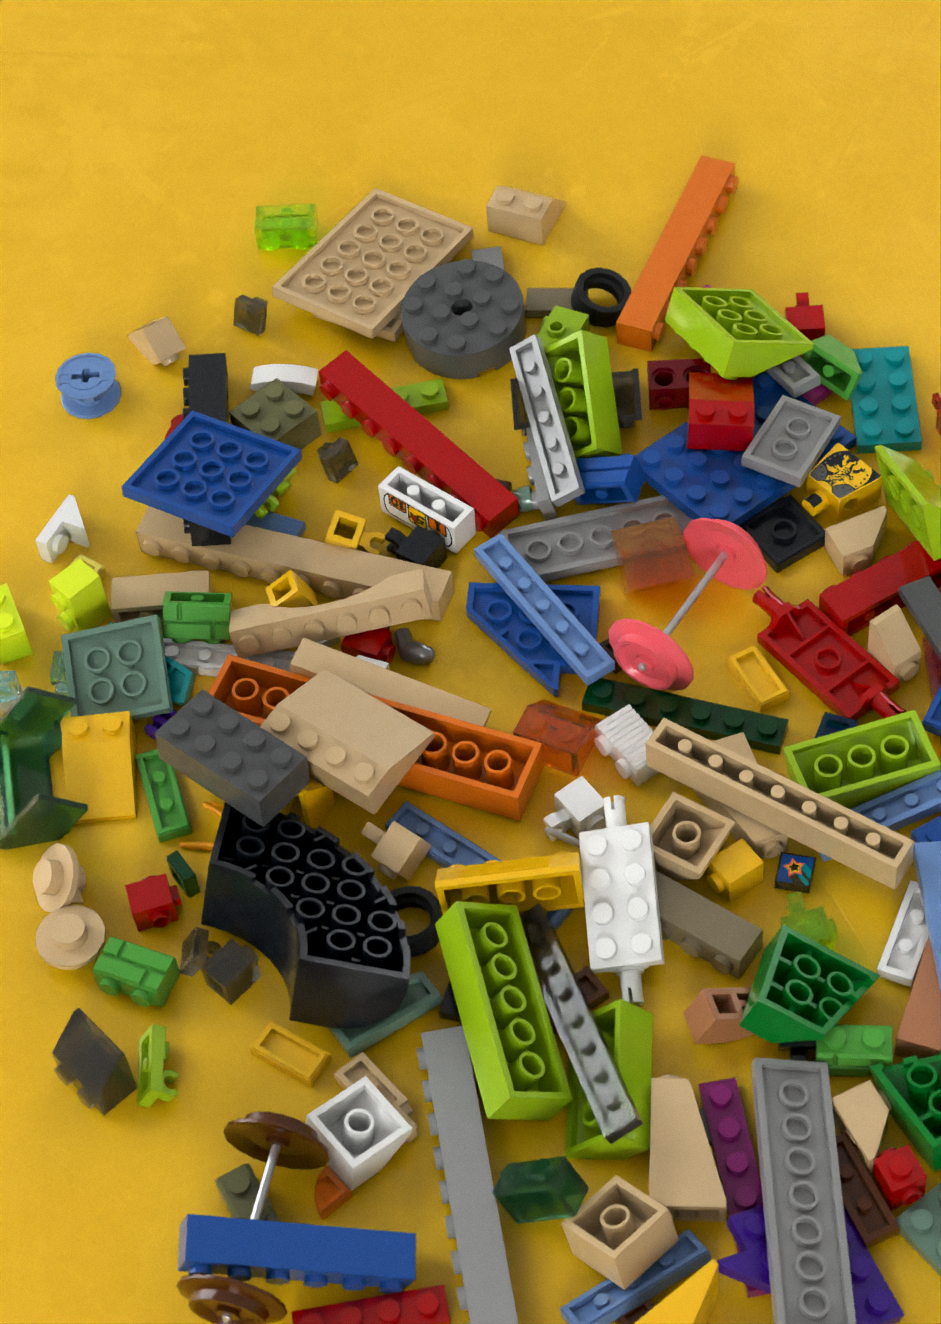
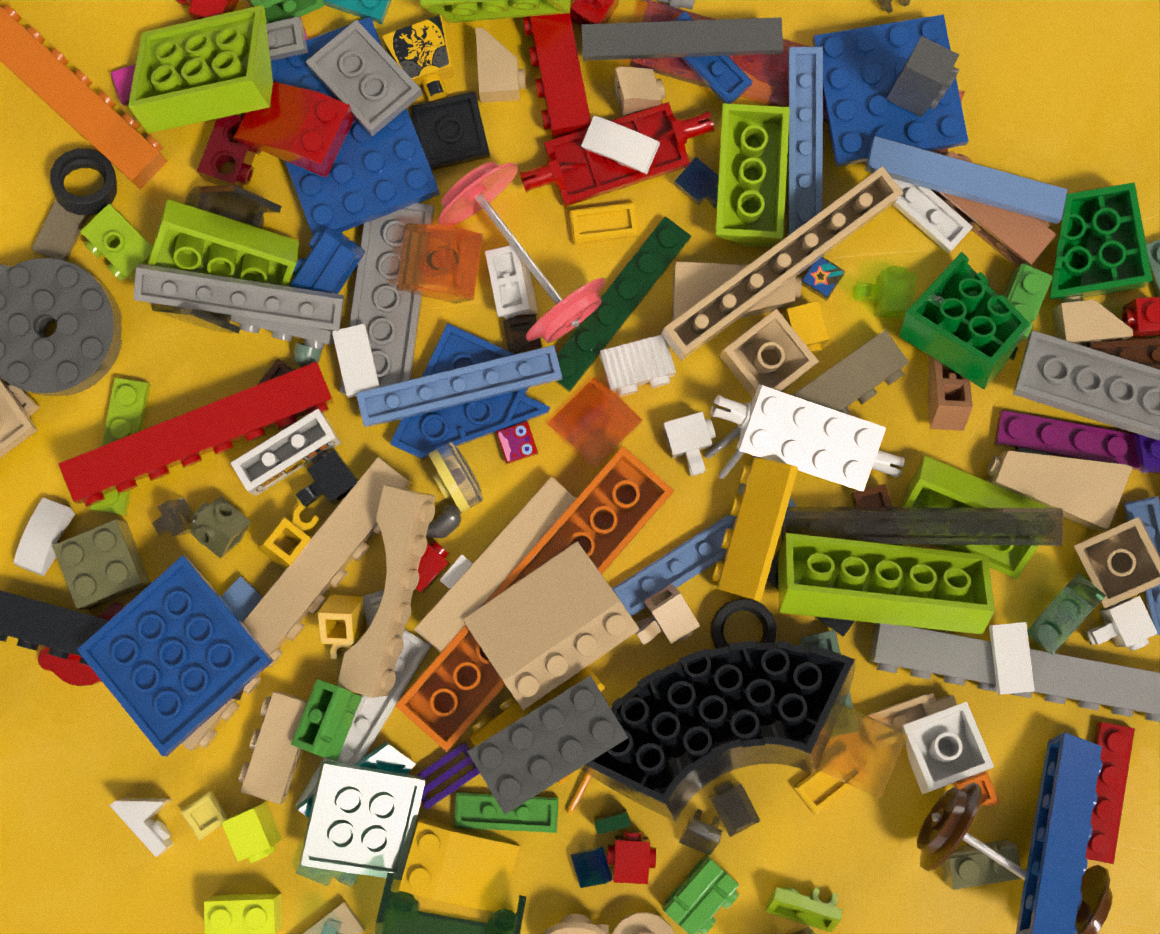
camera: 80 degrees left, 30 degrees up
(133, 871) = (591, 867): none -> tile
(326, 1053) = (862, 751): none -> clear yellow tile
(341, 487) = (219, 526): none -> olive brick
(458, 634) = (456, 477): none -> piece
(473, 1152) = (1011, 658): none -> white tile
(514, 682) = (517, 442): none -> tile
(535, 527) = (356, 359): none -> white tile
(558, 1269) = (1124, 623): none -> white brick
(662, 610) = (510, 283): none -> white hinge
(832, 648) = (620, 144): none -> white slope

